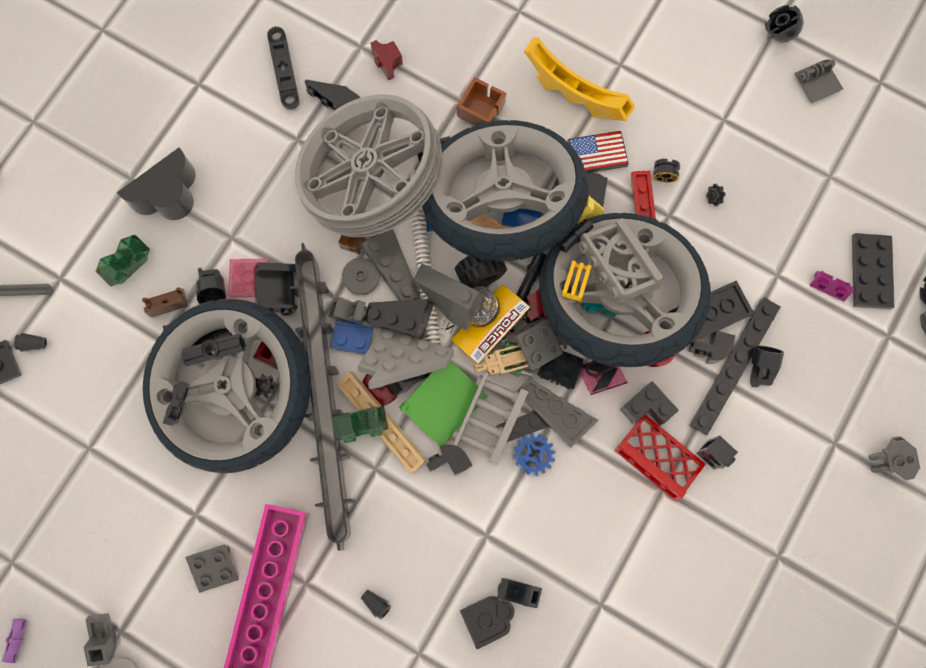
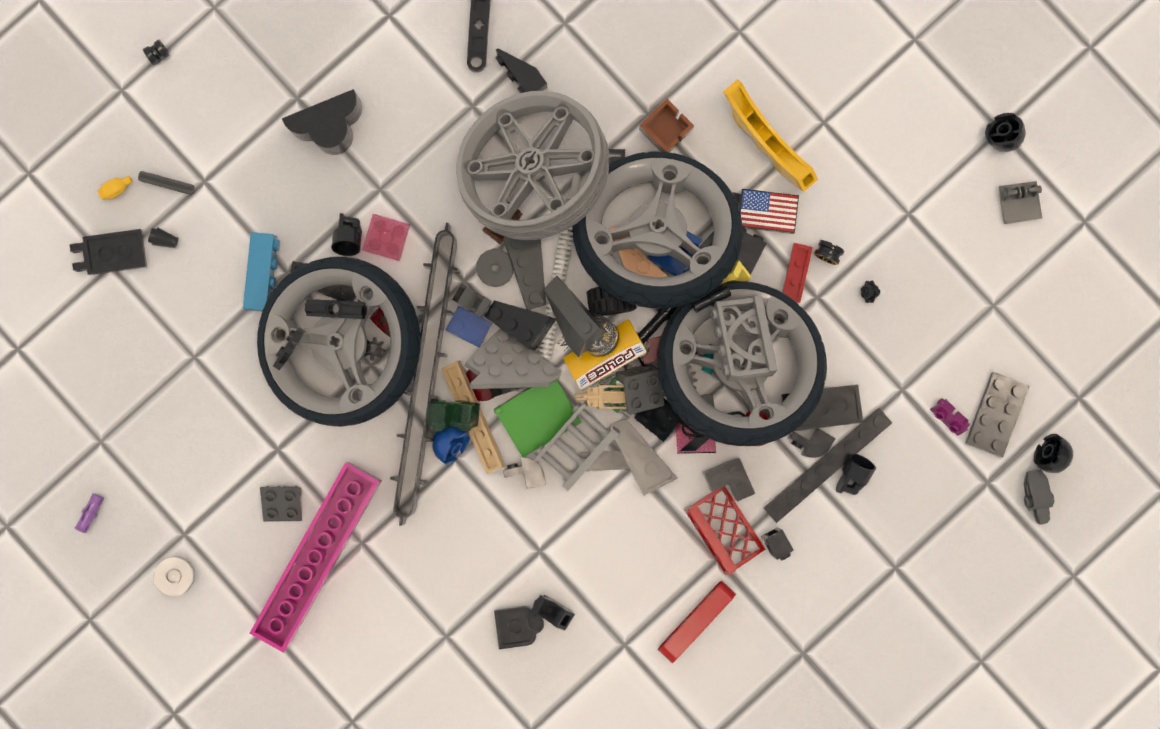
camera: 20 degrees right, 10 degrees up
(101, 640) = (167, 537): dark grey brick -> none
(127, 260) = (273, 183): clear green brick -> none
(133, 343) = (260, 270): none -> dark azure brick
(165, 302) = (300, 237): reddish brown hinge -> none
(273, 286) = (407, 257): black panel -> none
(365, 453) = (449, 443): none -> blue cylinder
(377, 605) = (420, 581): black cone -> none
(387, 57) = (586, 45): dark red brick -> none
(528, 442) = (615, 489): blue gear -> none
(580, 267) = (704, 333): yellow tile -> none
(664, 557) = (696, 621): none -> beam
(898, 458) = (947, 601): dark grey hinge -> none

